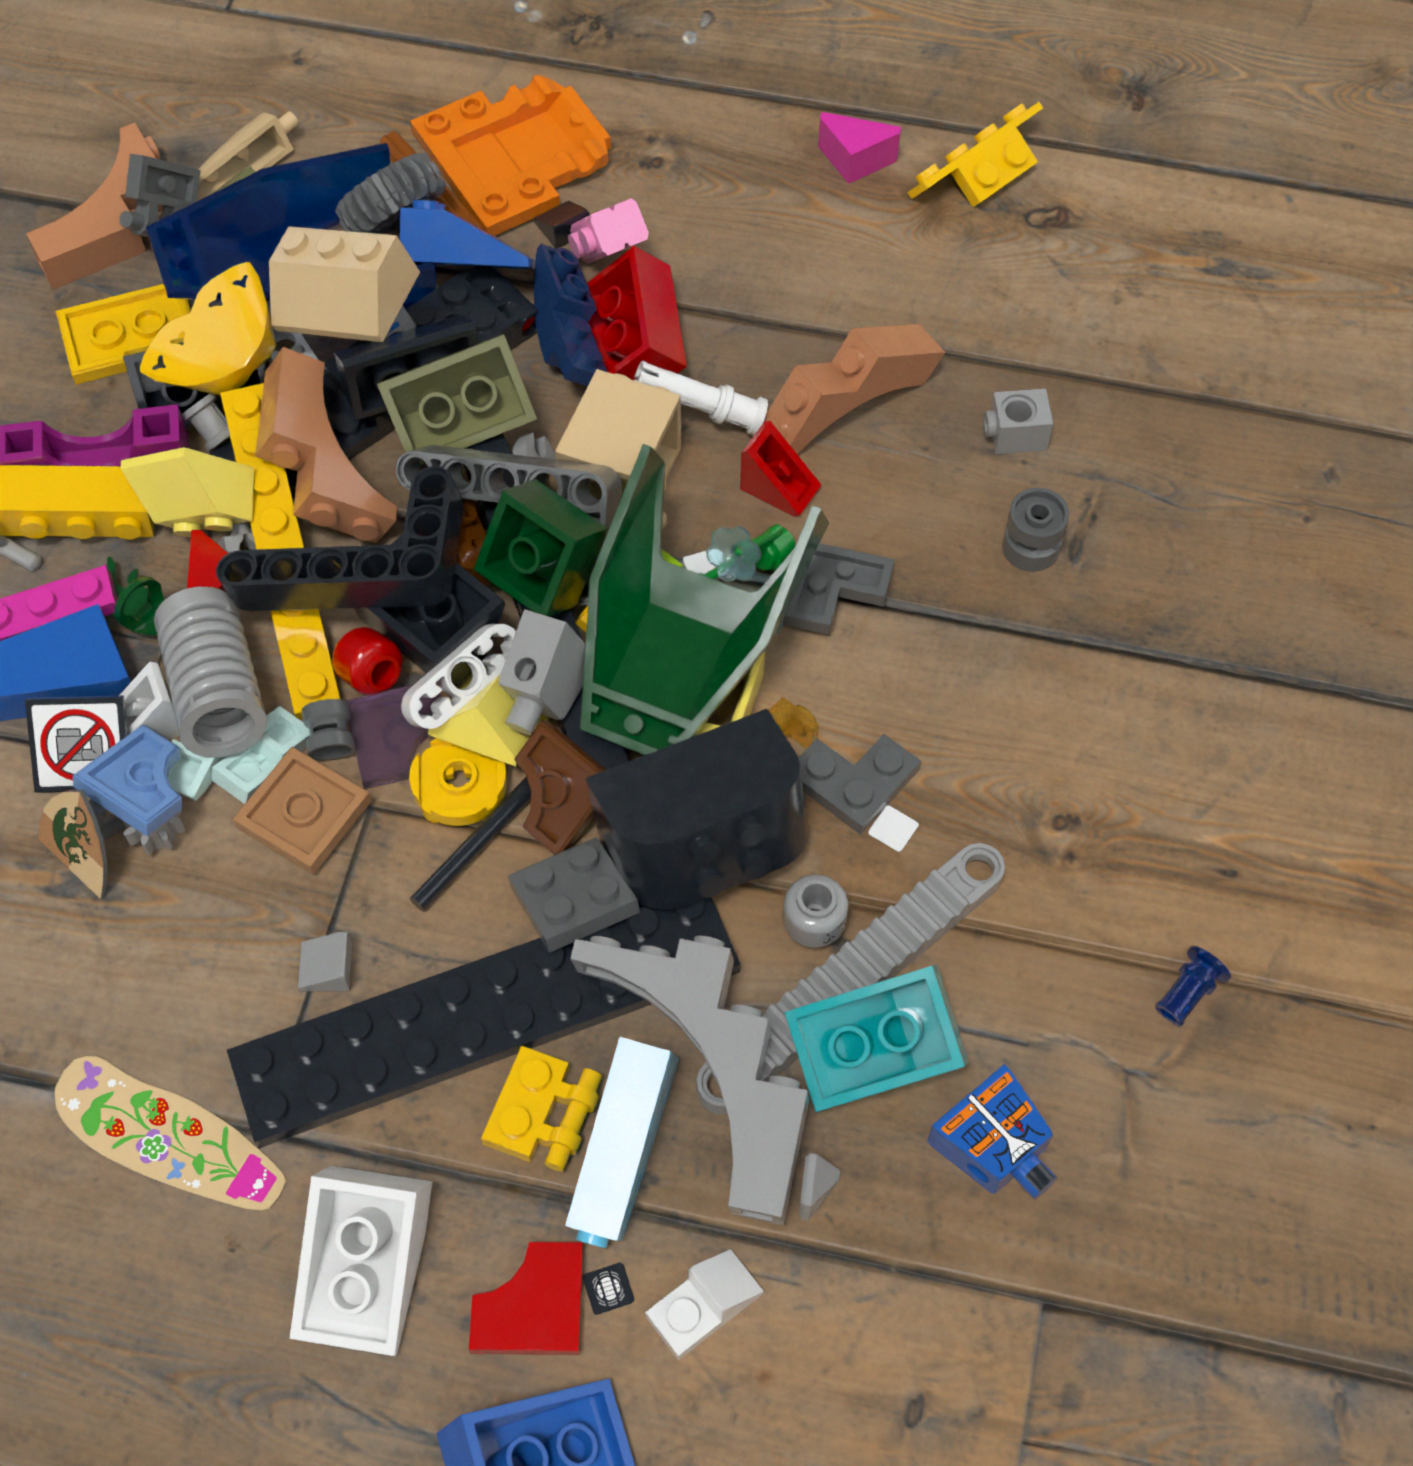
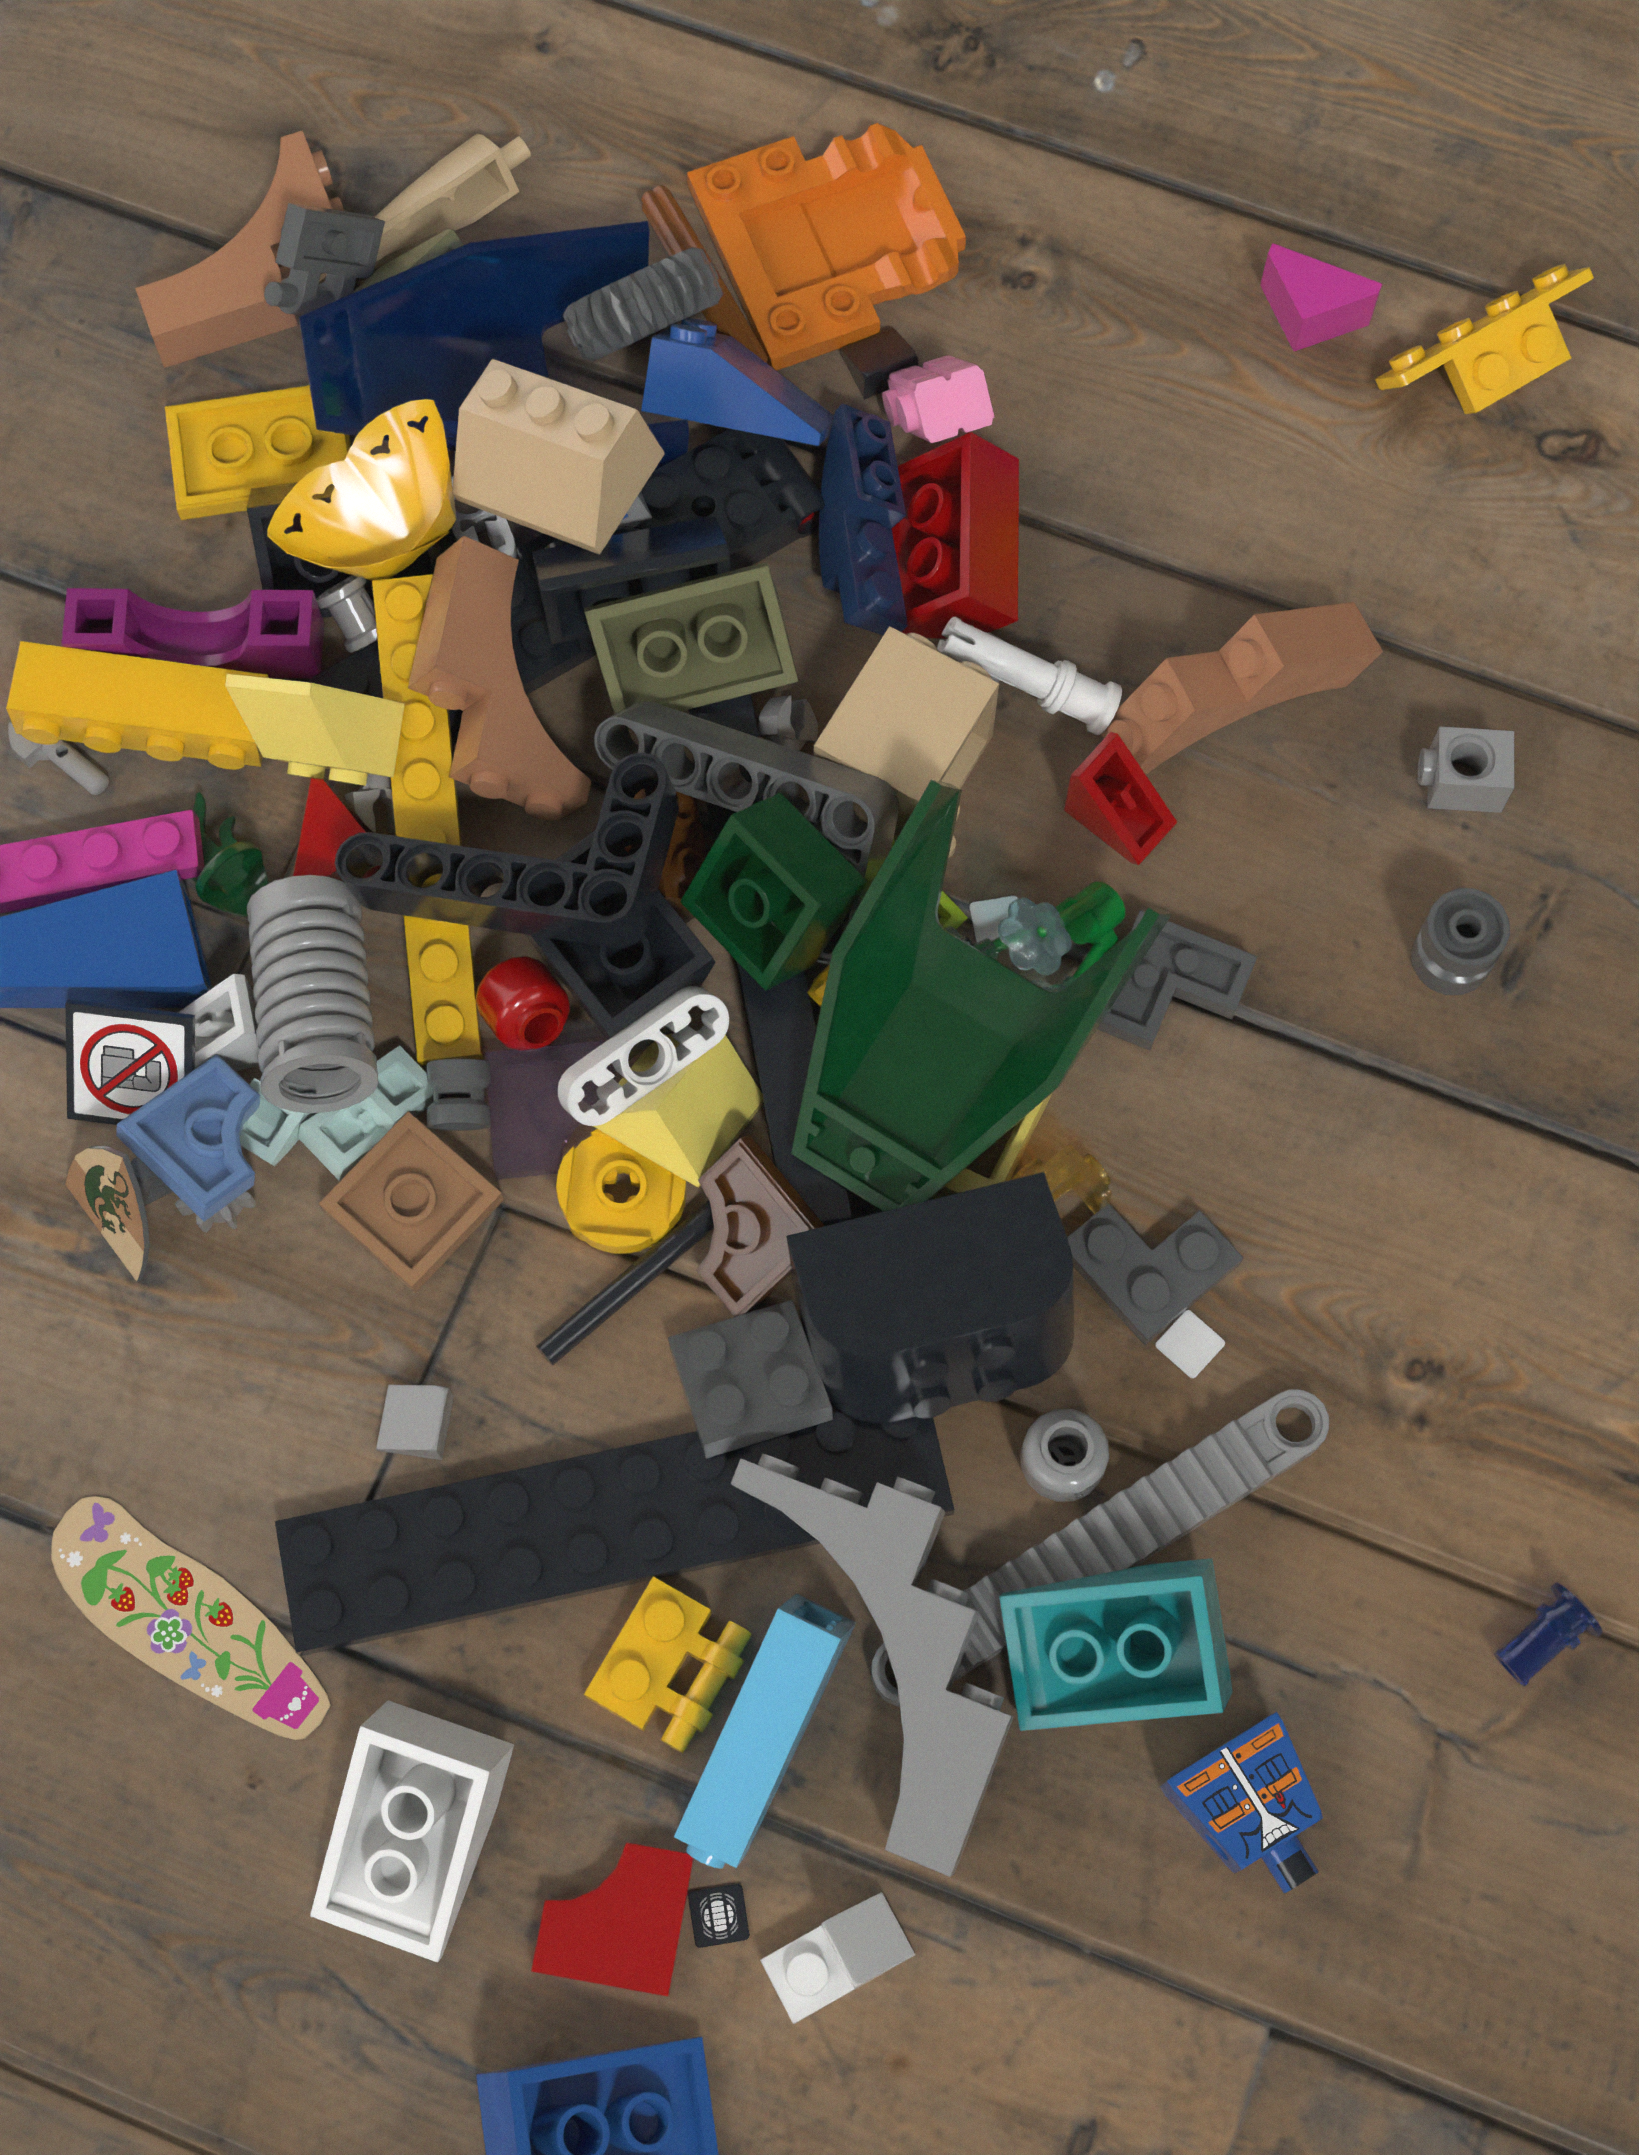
camera: 10 degrees right, 10 degrees up
(542, 670) = (750, 1072): light grey torso -> none
(818, 1182) = (1006, 1823): light grey slope -> none

